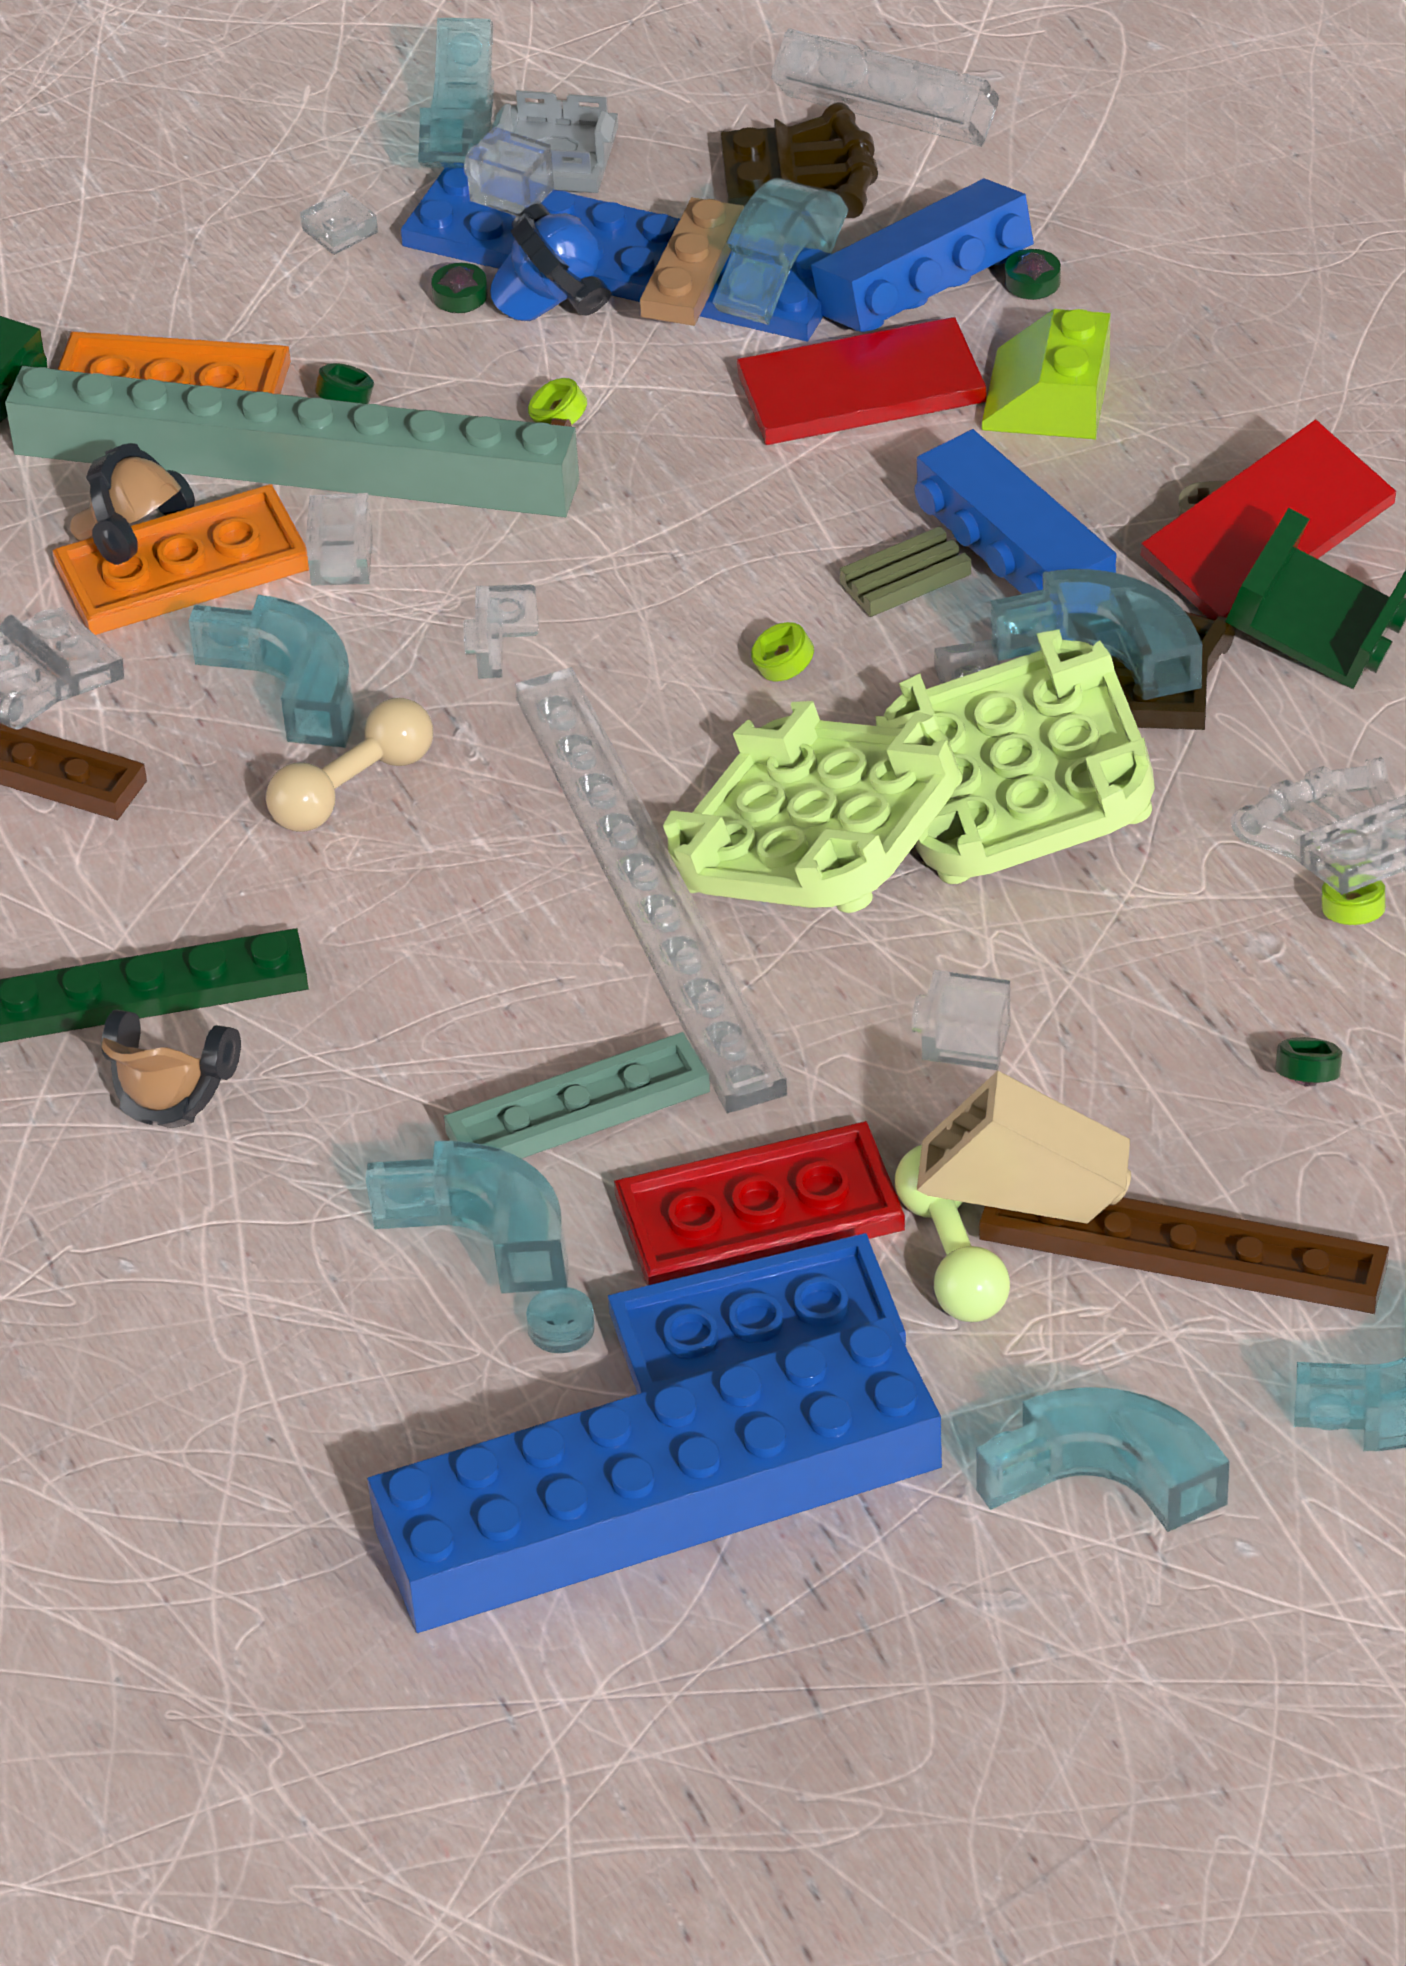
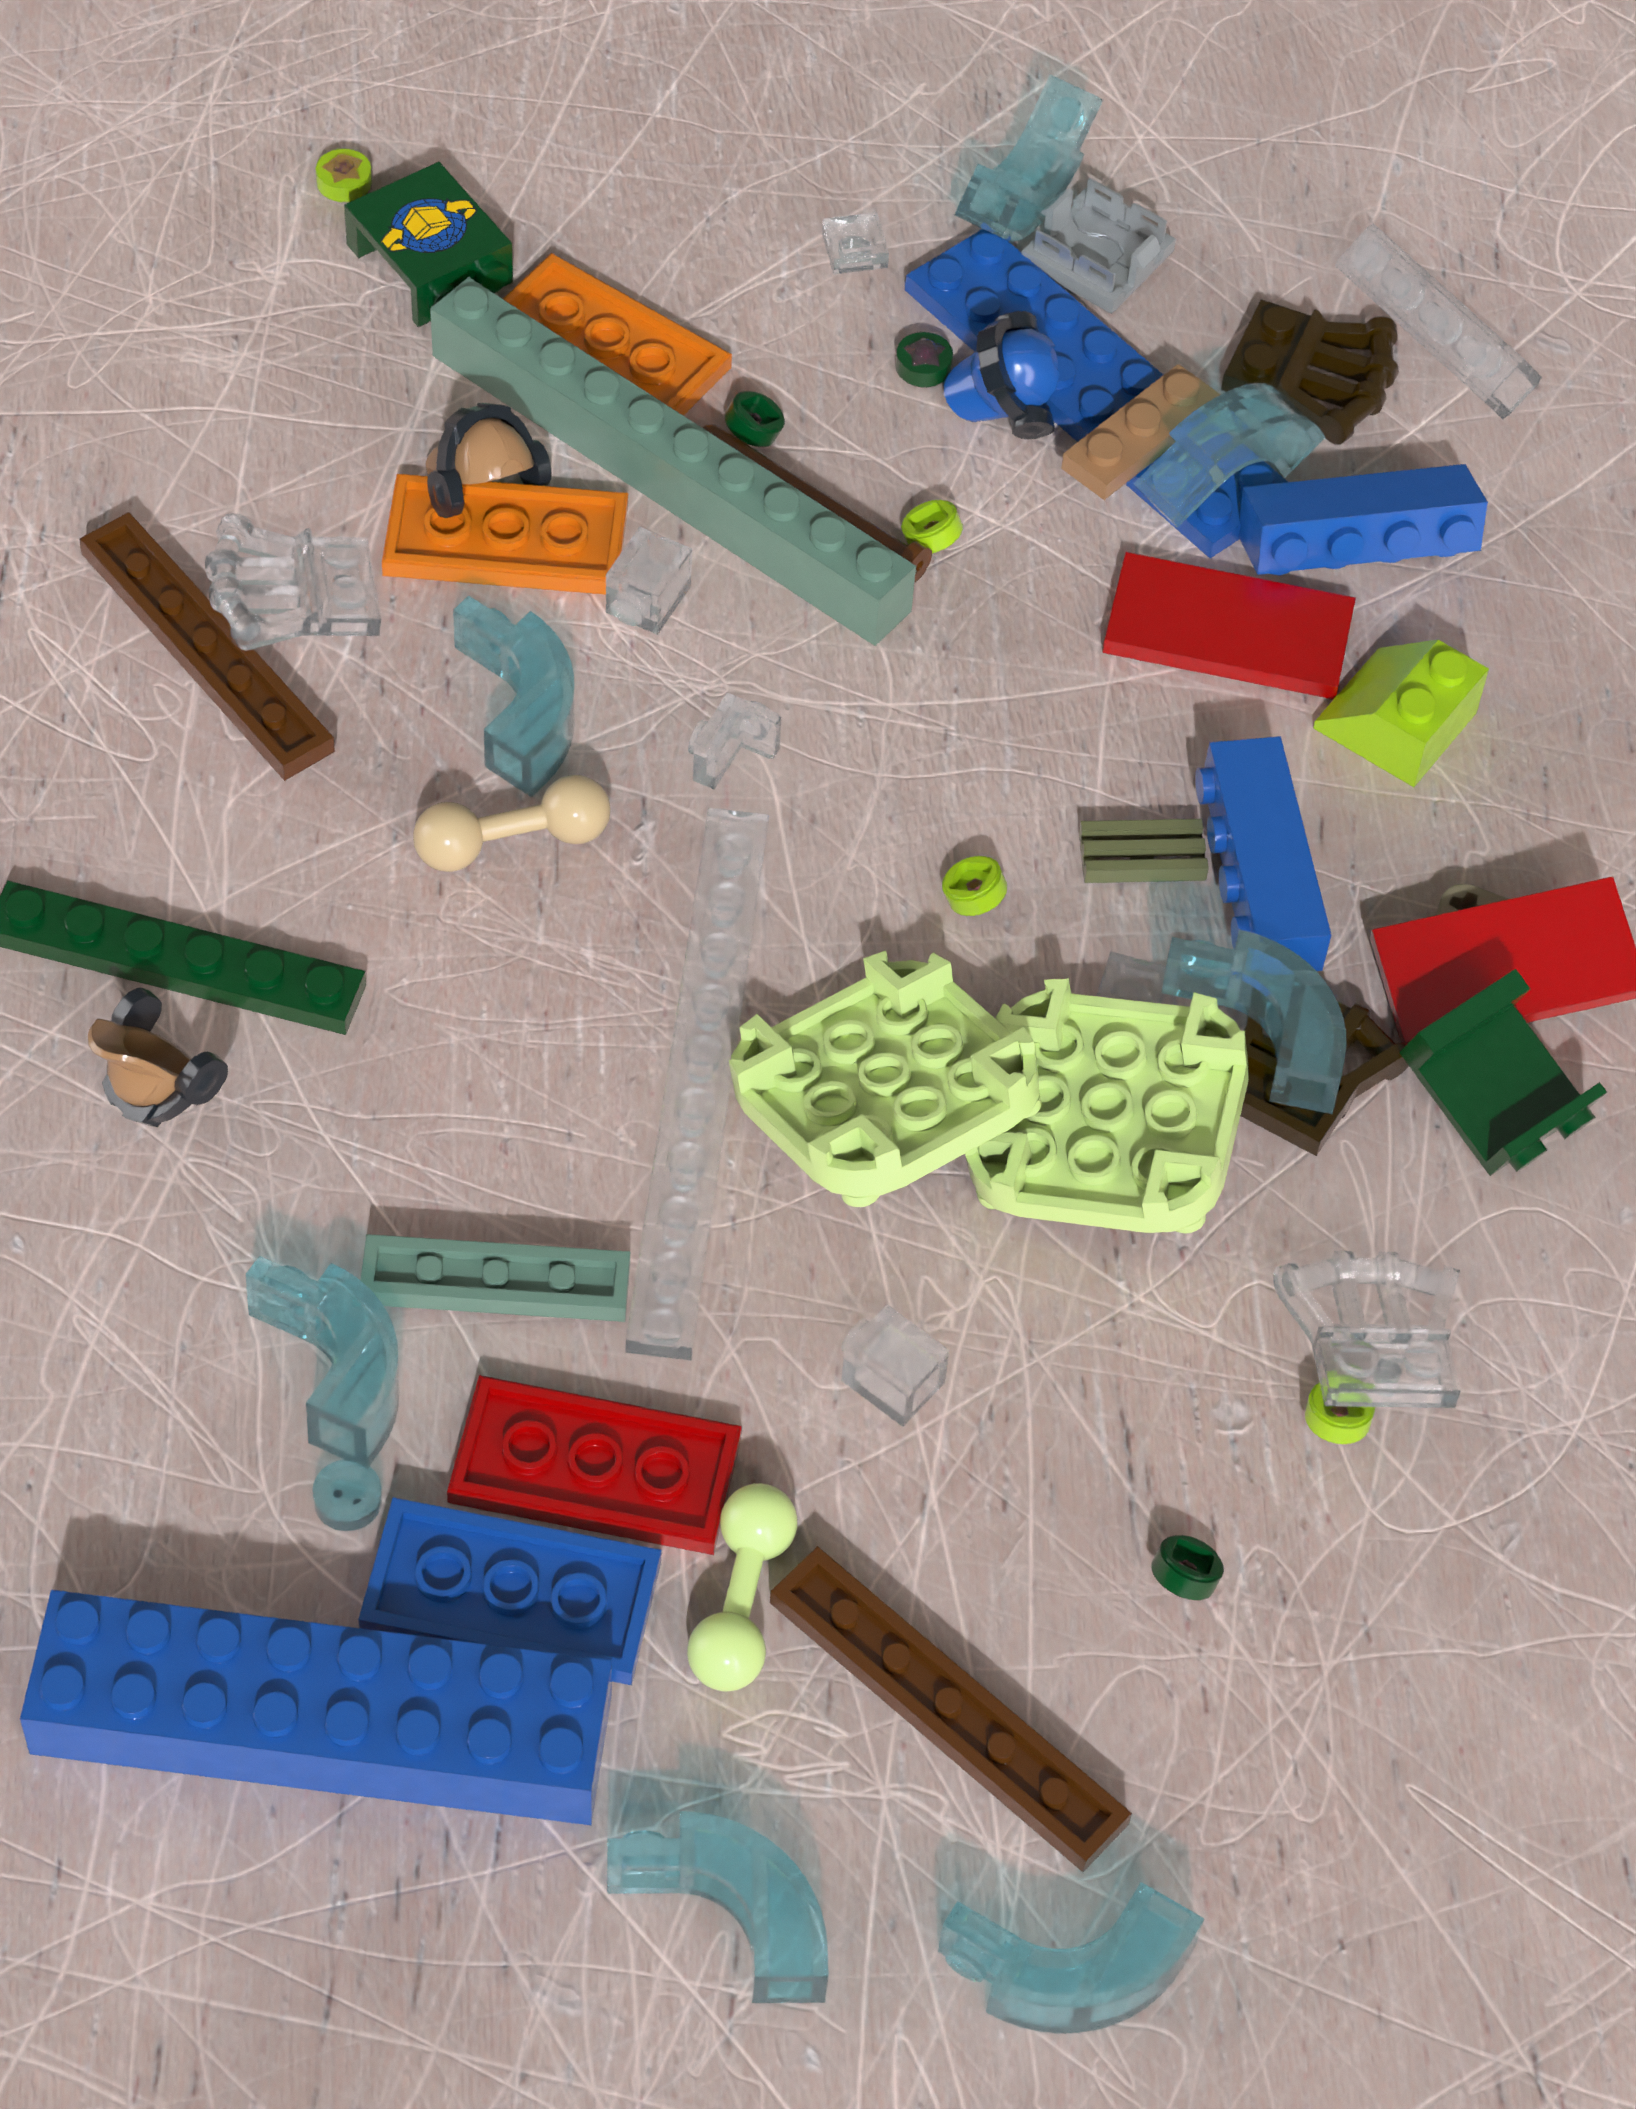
camera: 20 degrees right, 10 degrees up
(509, 171) = (1026, 264): clear brick -> none
(1024, 1155) = (834, 1556): tan slope -> none
(1032, 274) = (1461, 582): dark green tile -> none

